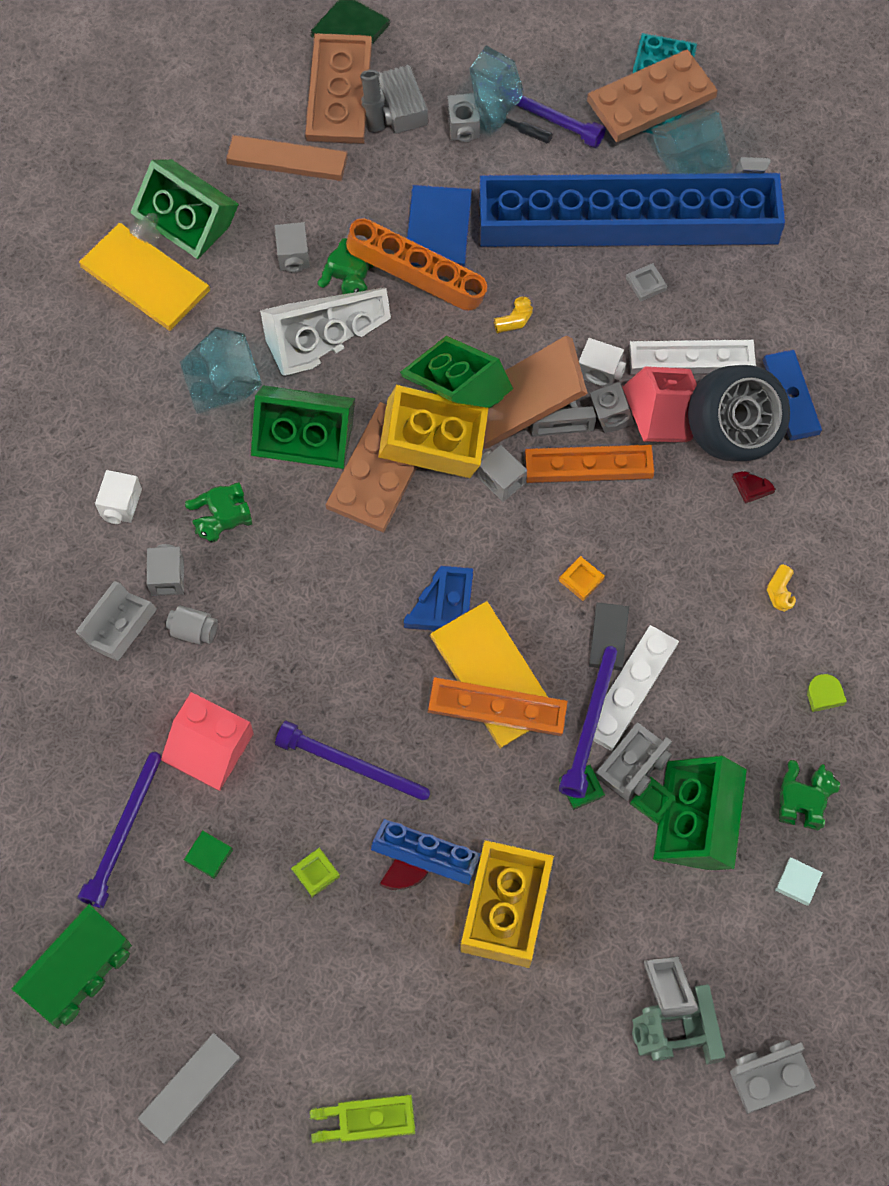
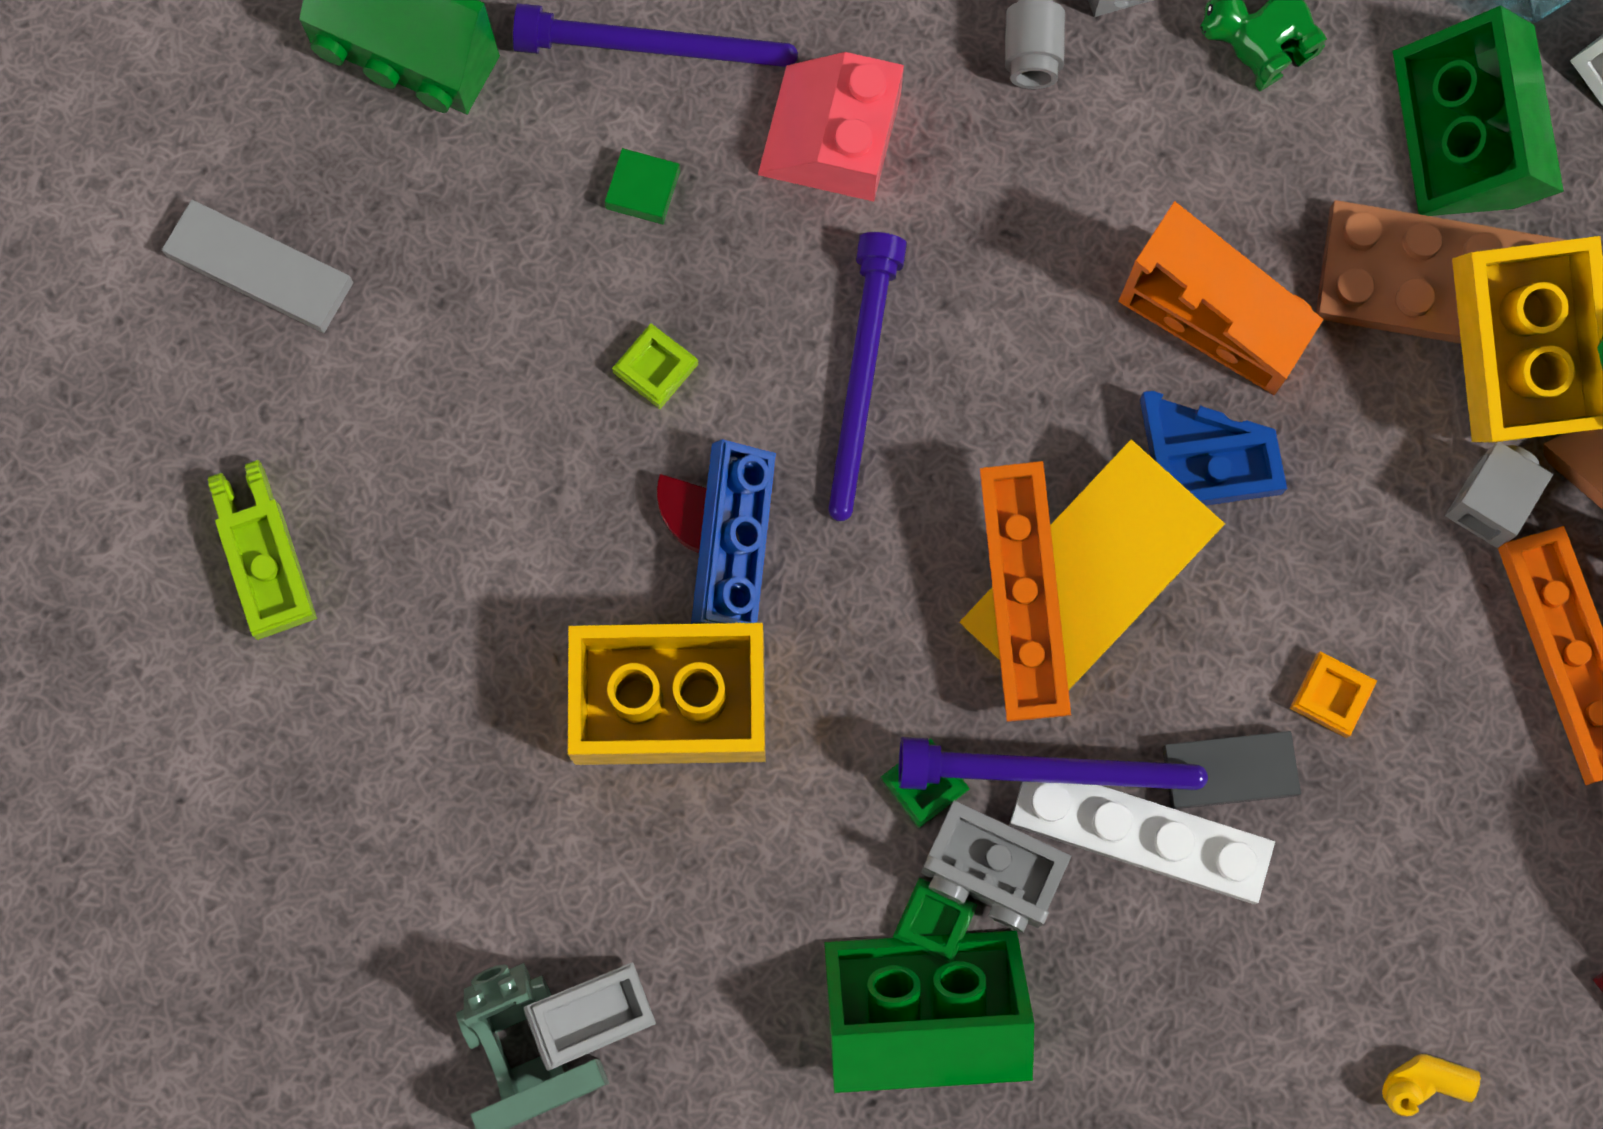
camera: 75 degrees right, 10 degrees up
(366, 573) = (1219, 301): none -> orange wedge

